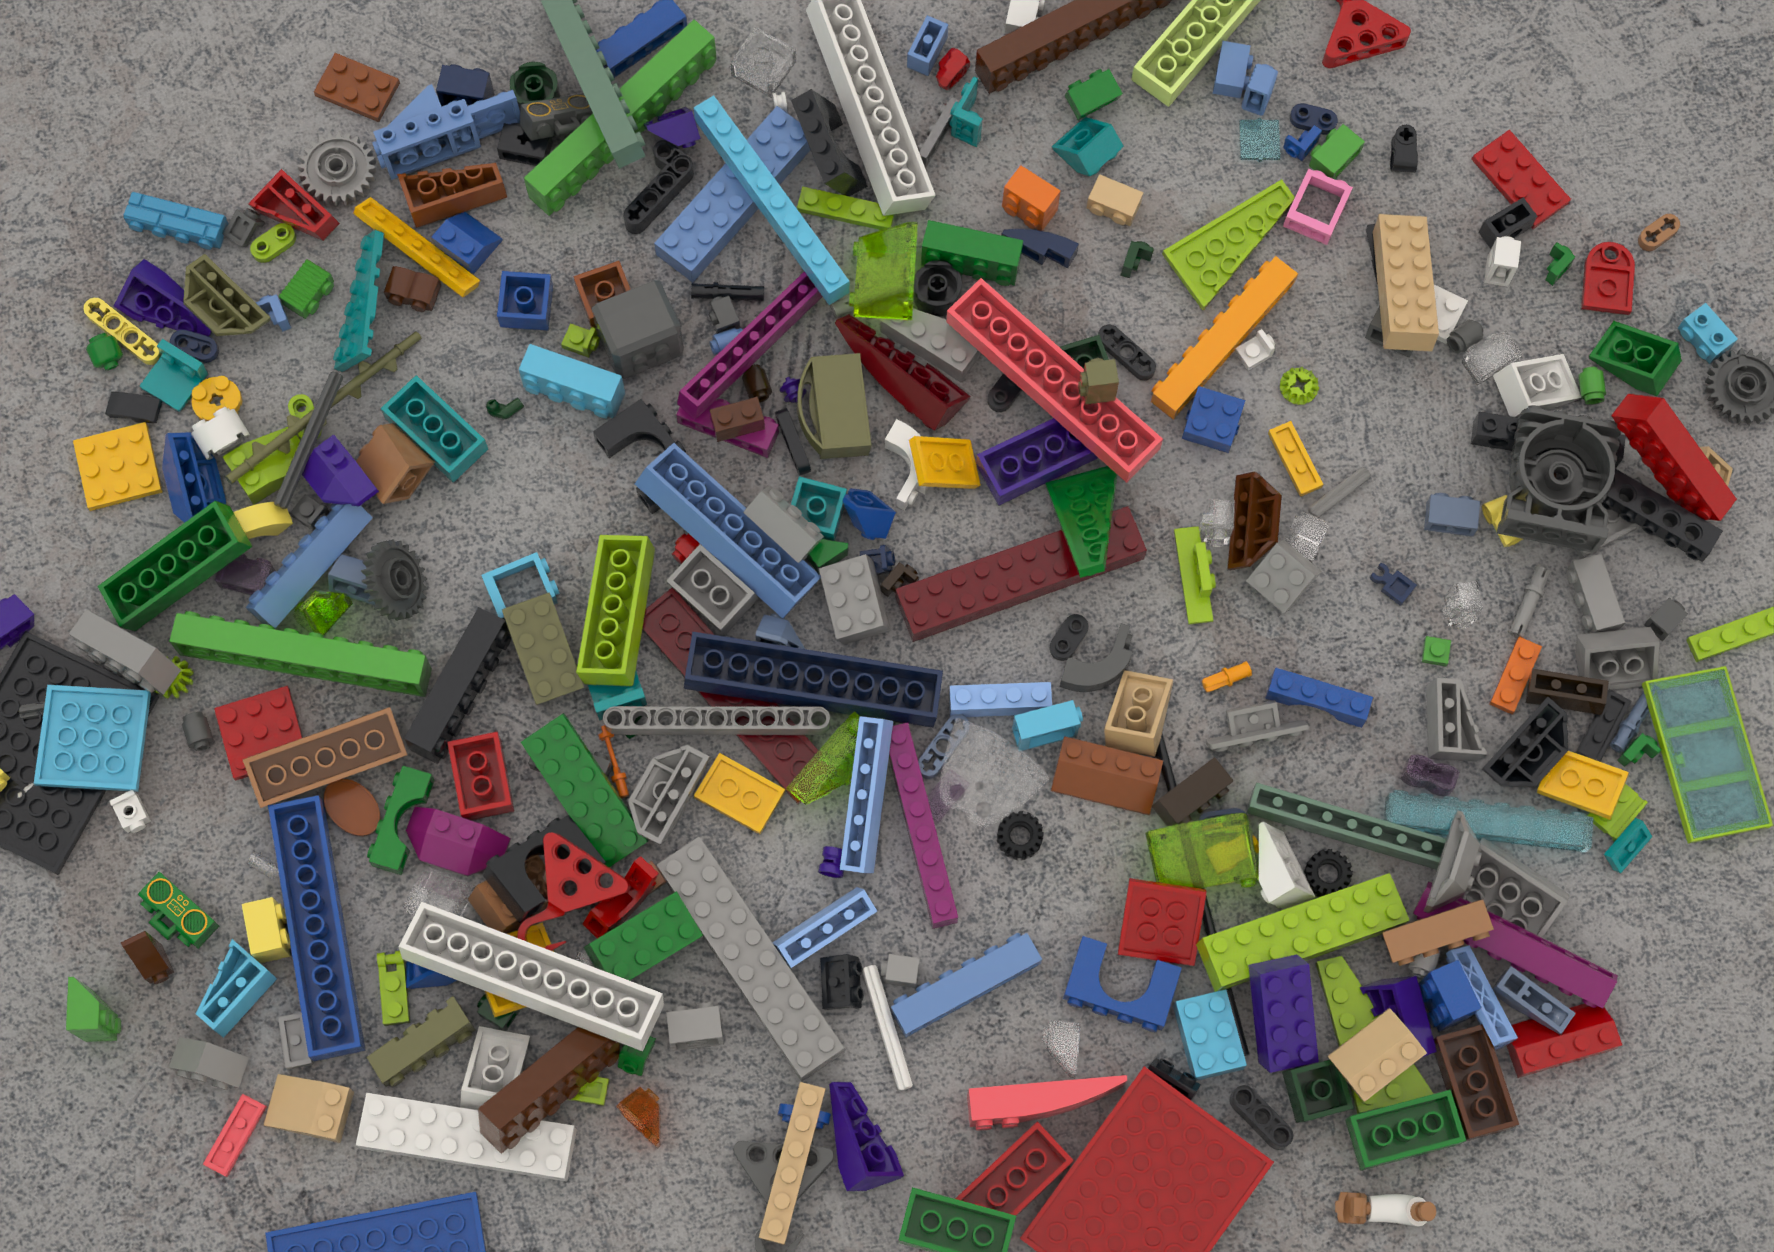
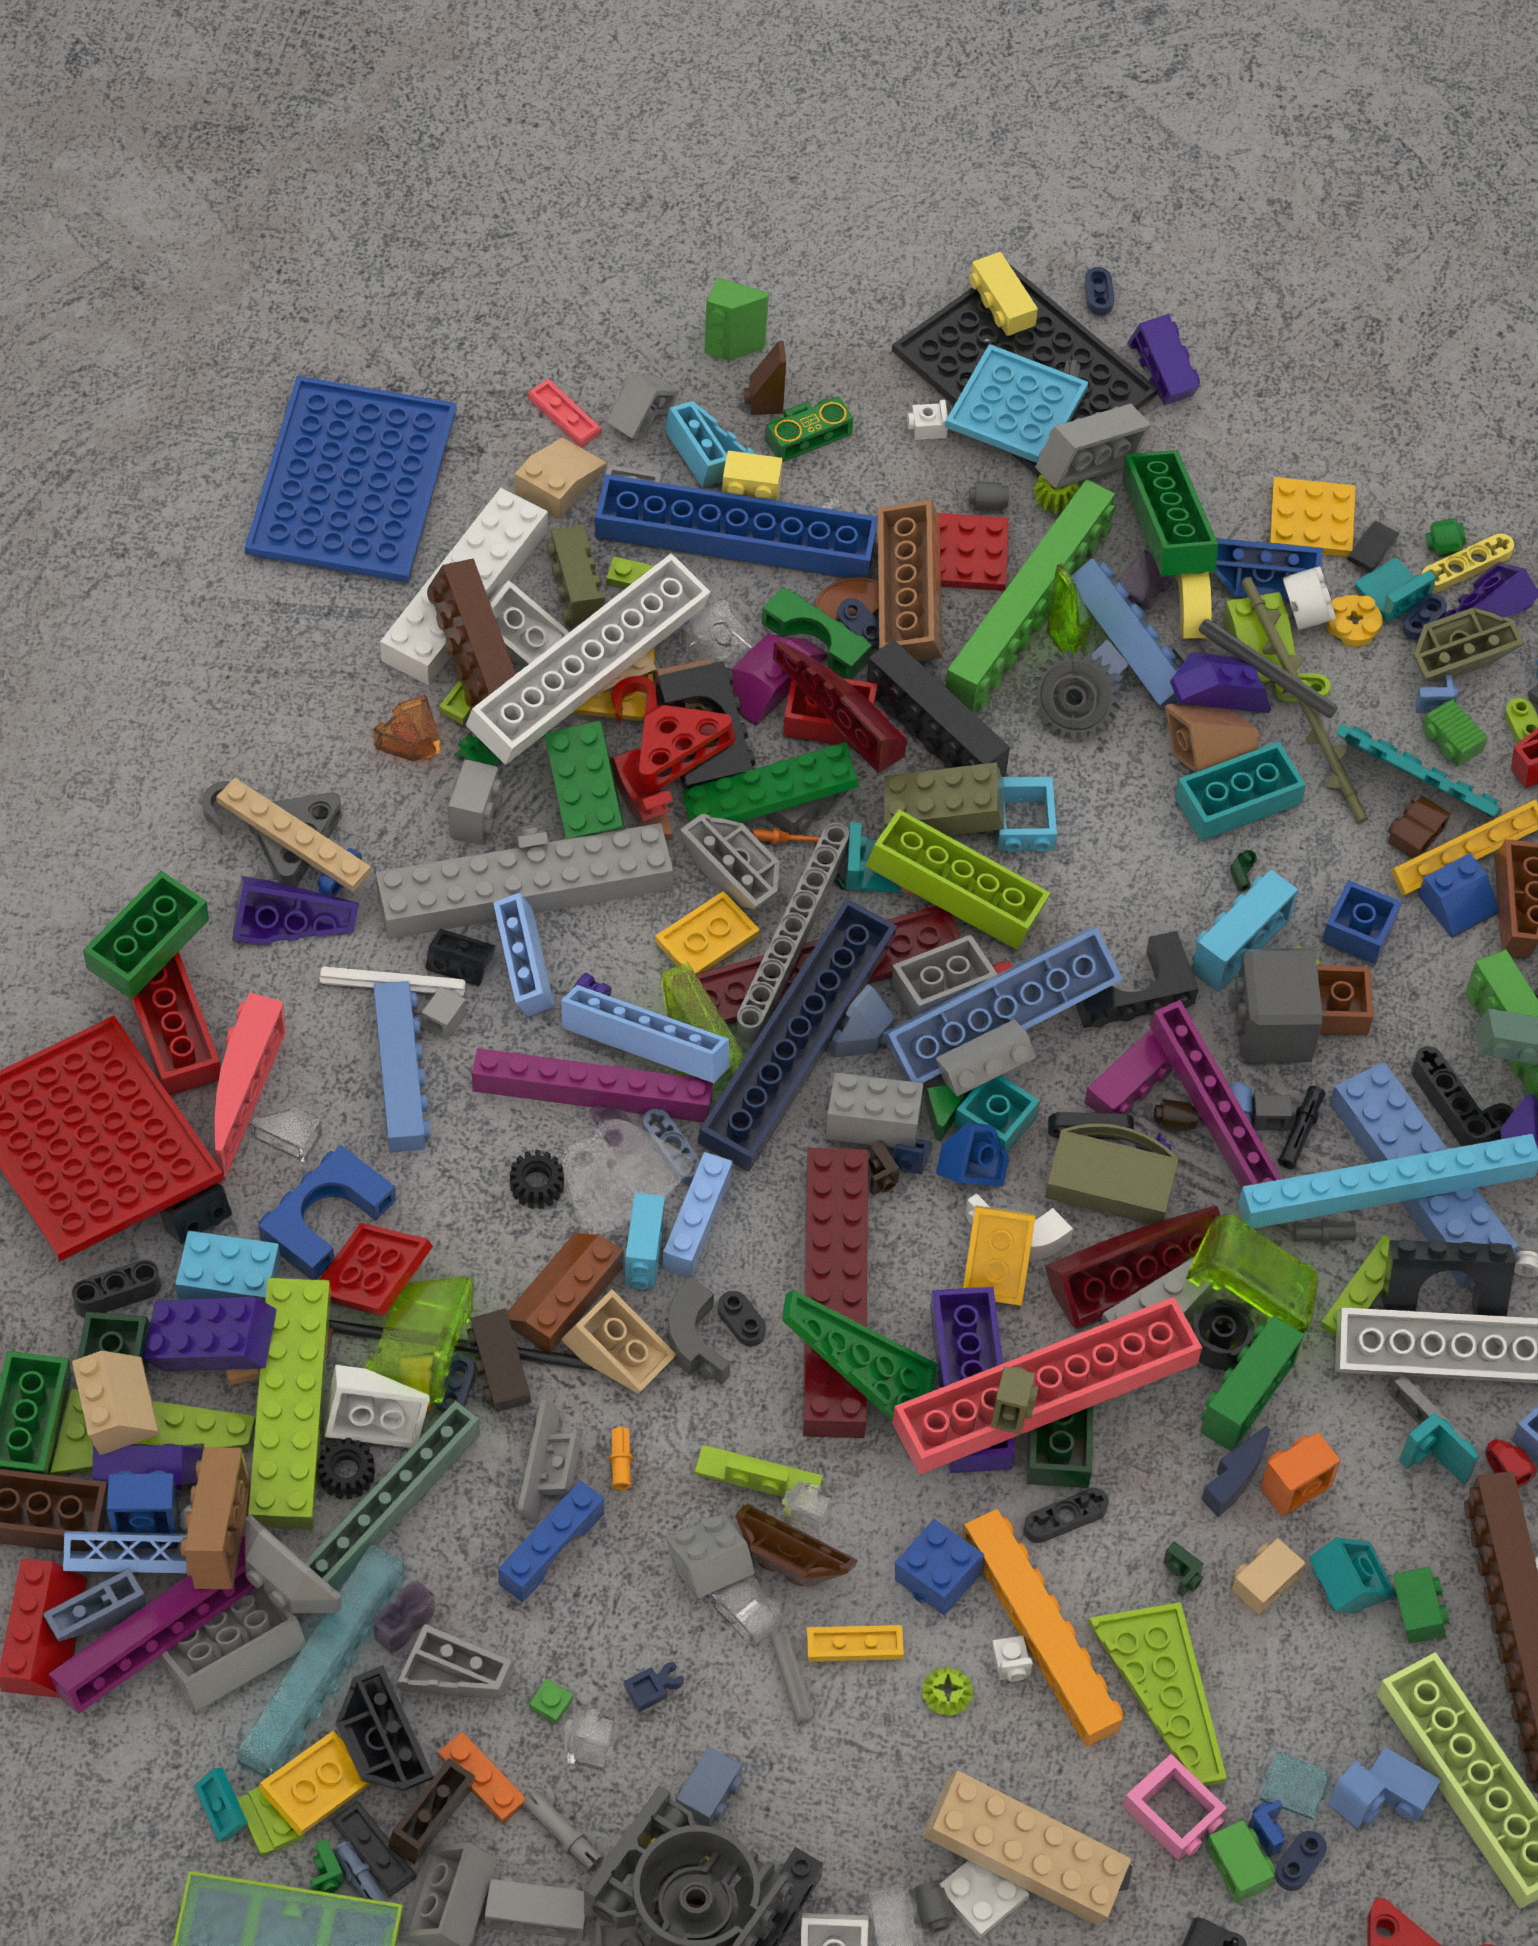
camera: 110 degrees right, 15 degrees down
(378, 786) = (860, 622): none -> dark blue plate
(490, 750) = (844, 707): none -> dark red wedge
(711, 968) = (529, 836): none -> light grey plate
(737, 419) = (1131, 1061): reddish brown brick -> none

